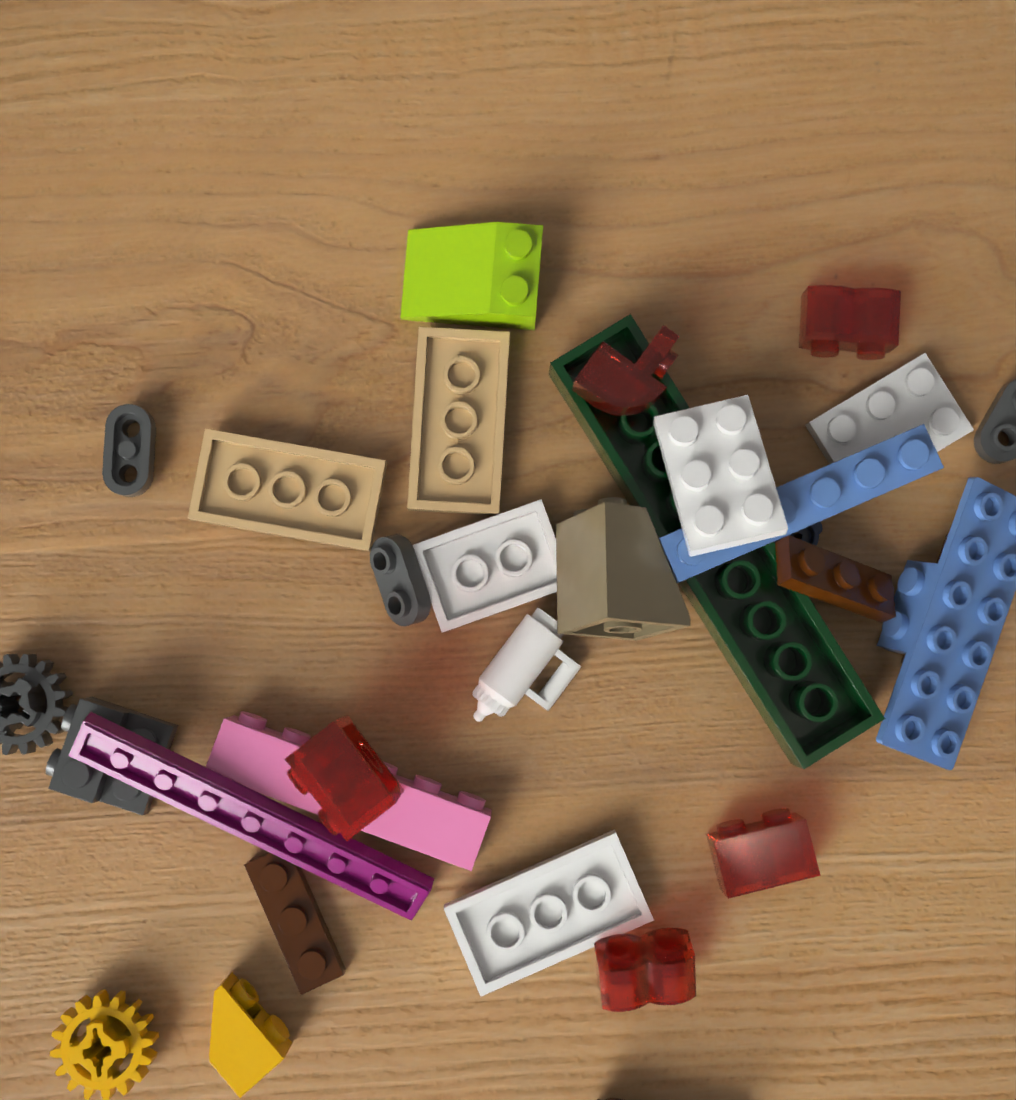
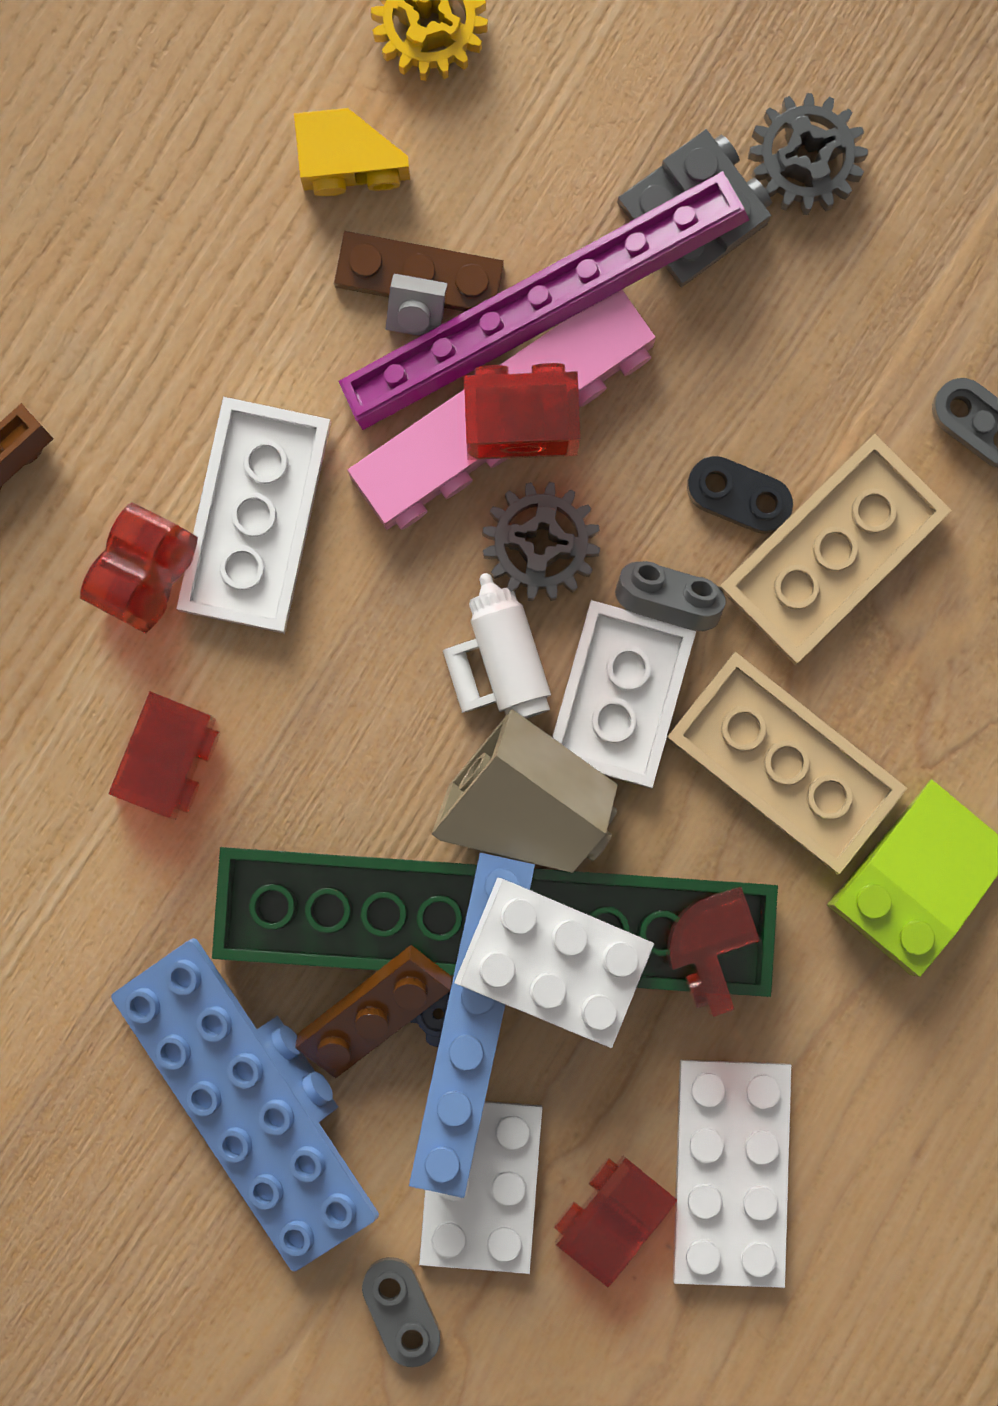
camera: 120 degrees right, 0 degrees up
(296, 581) = (739, 497): none -> black plate
(319, 906) = (415, 305): none -> light grey plate
(437, 723) = (515, 535): none -> dark grey gear
(759, 267) = (732, 1173): none -> white plate

